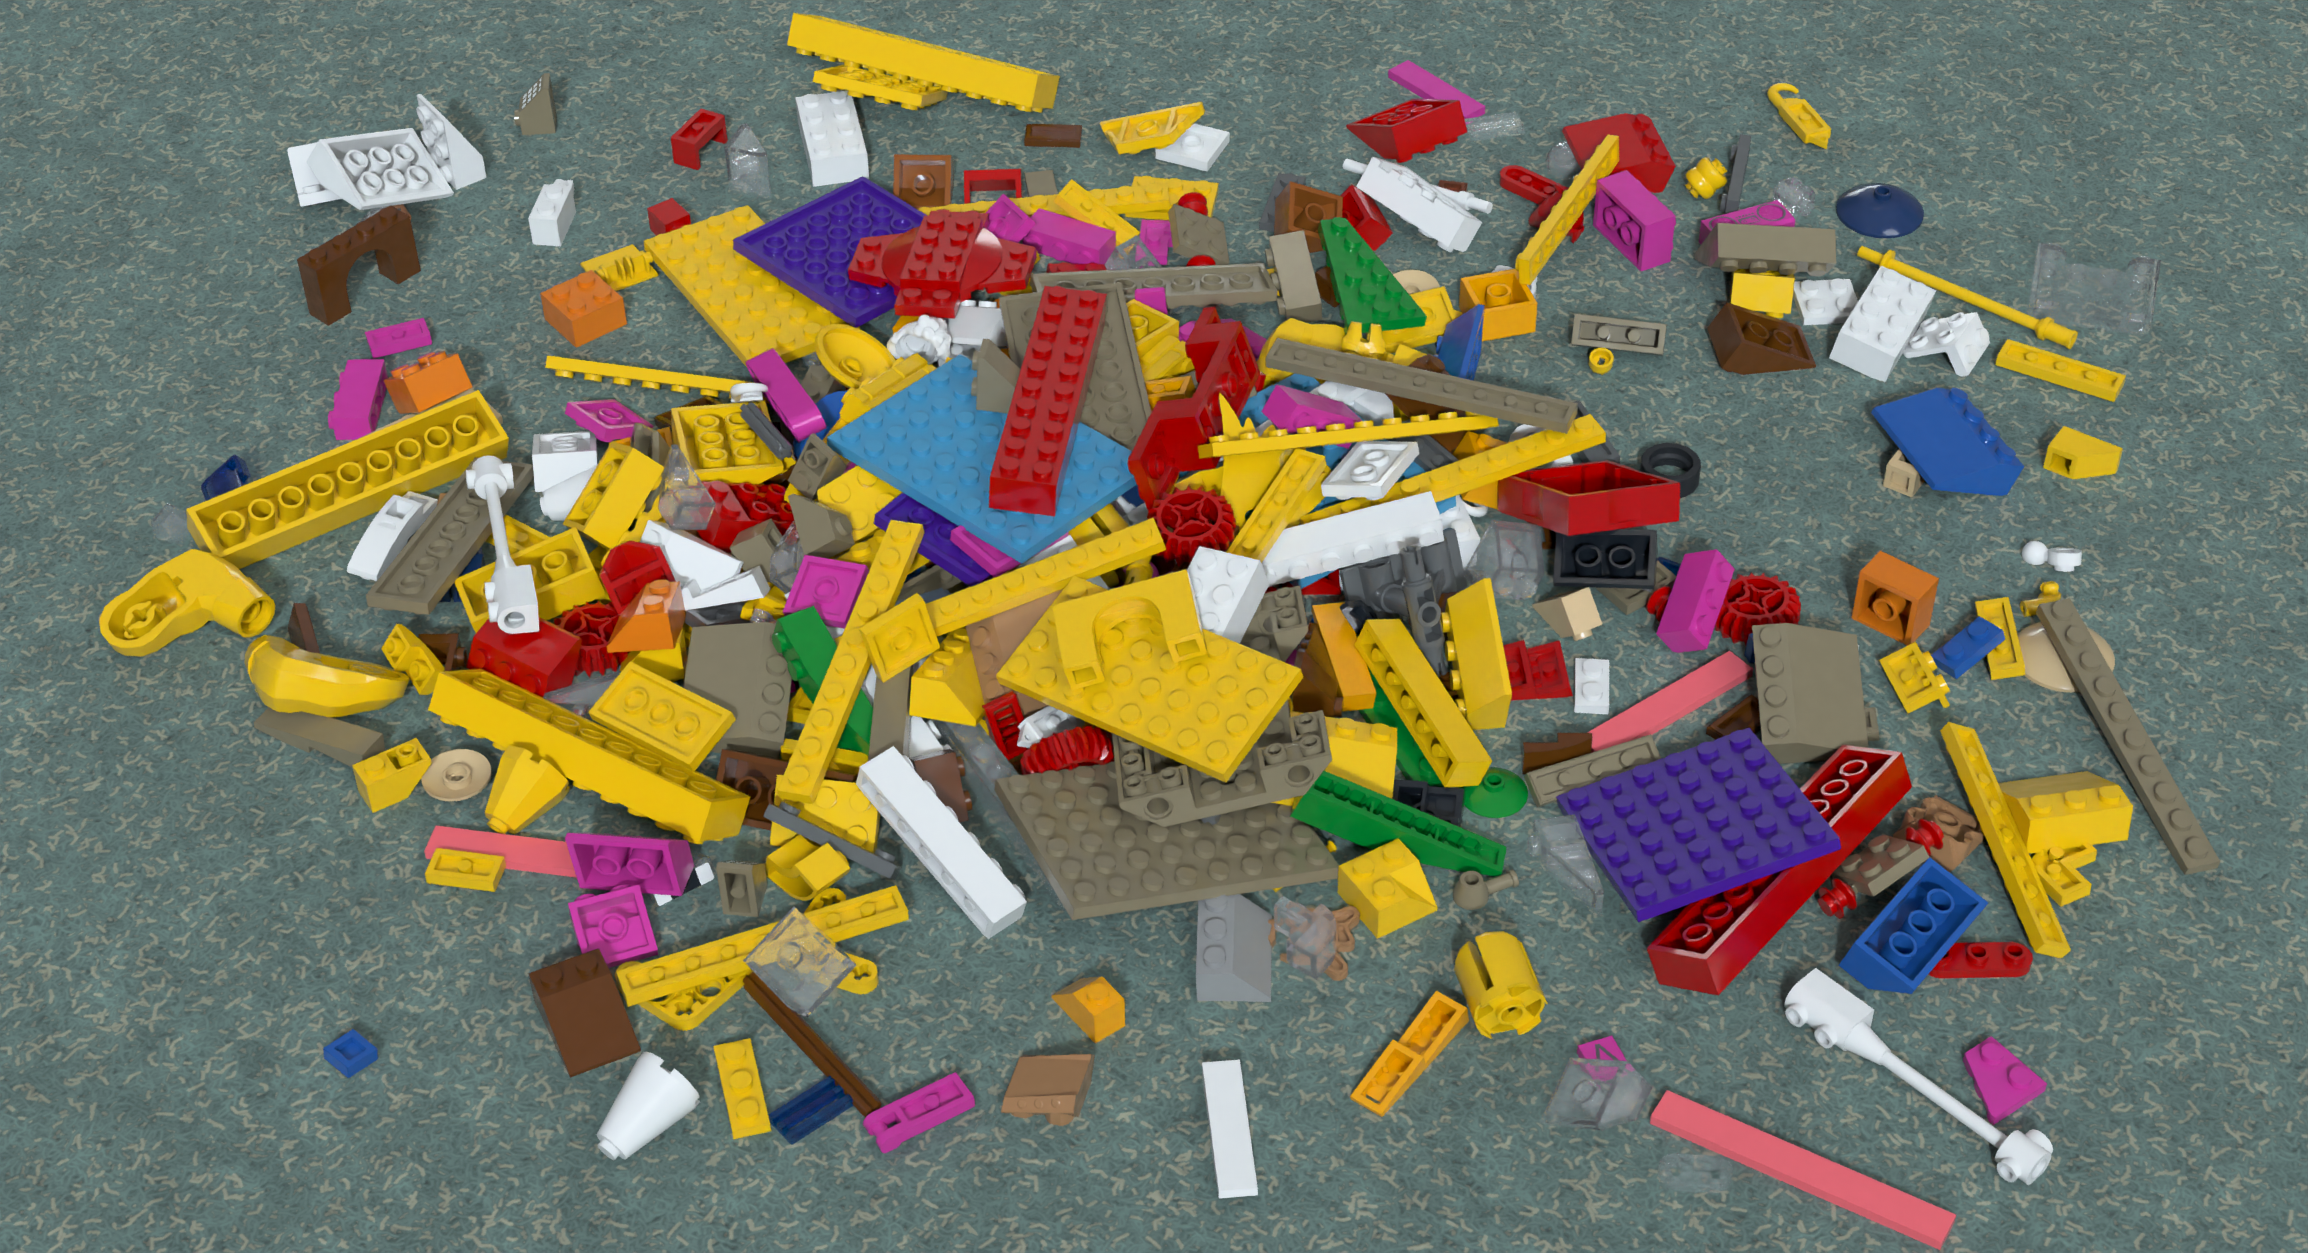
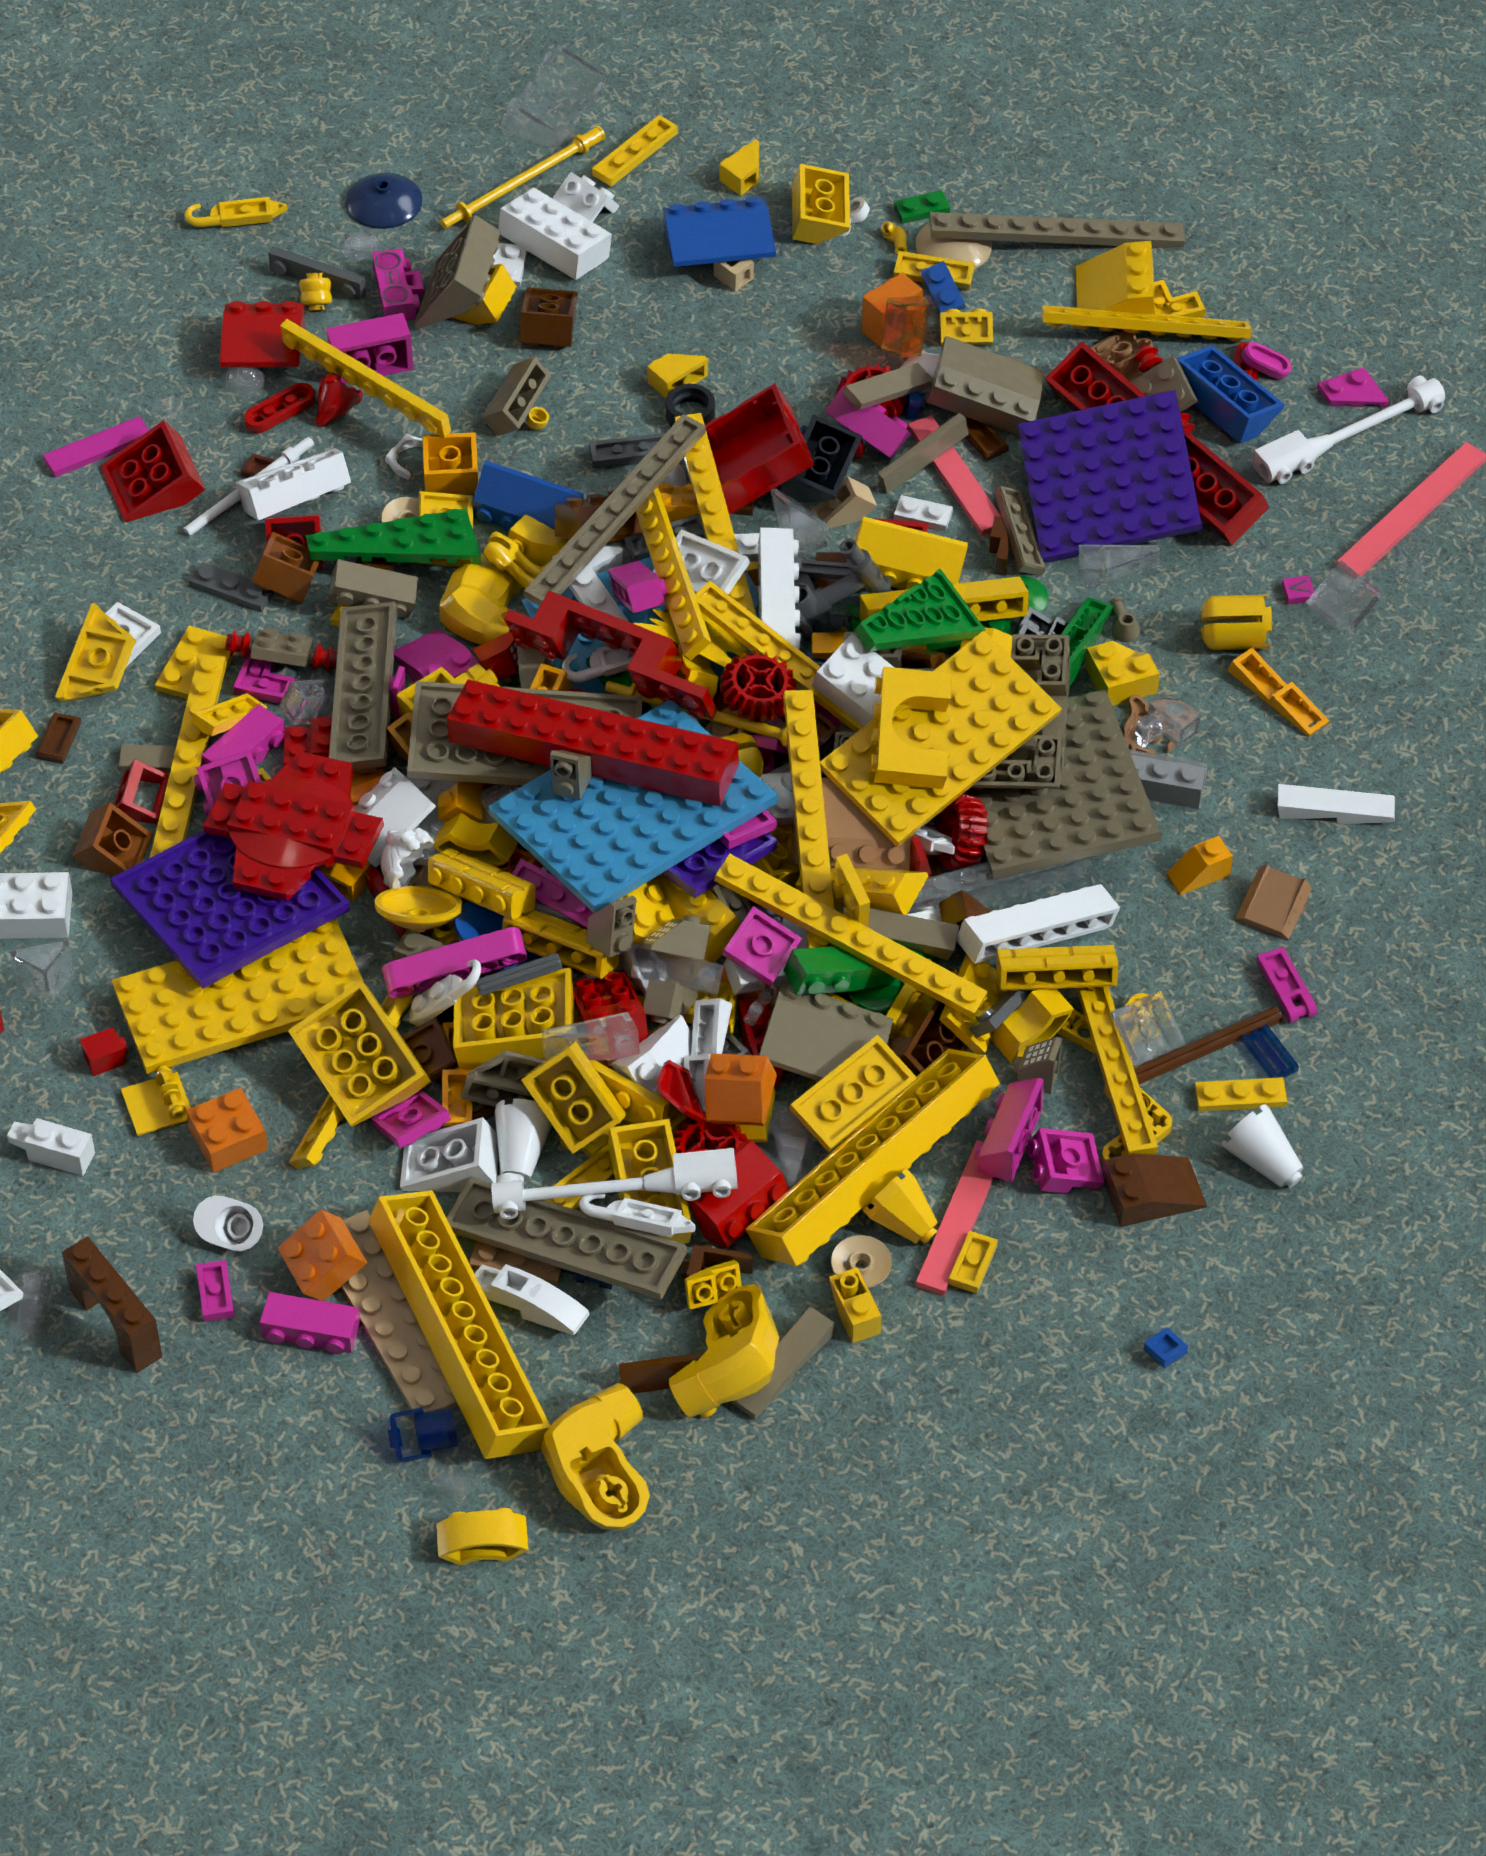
camera: 80 degrees left, 10 degrees up
(104, 547) = (482, 1536): none -> yellow brick
(464, 567) = (639, 1215): none -> white plate
(469, 329) = (228, 1223): none -> white piece
(668, 360) = (359, 1055): none -> yellow slope
(864, 858) = (1057, 967): none -> yellow brick
(1348, 648) = (921, 616): none -> green wing
(1673, 660) = (923, 453): none -> dark tan tile
(1717, 449) = (676, 370): none -> yellow slope
(1738, 588) = (887, 386): none -> dark tan tile
(1868, 607) = (906, 325): none -> clear orange slope
(2000, 972) = (1266, 360): none -> dark pink tile
(2047, 514) = (819, 204): none -> yellow slope
(2110, 617) = (920, 206): none -> green plate

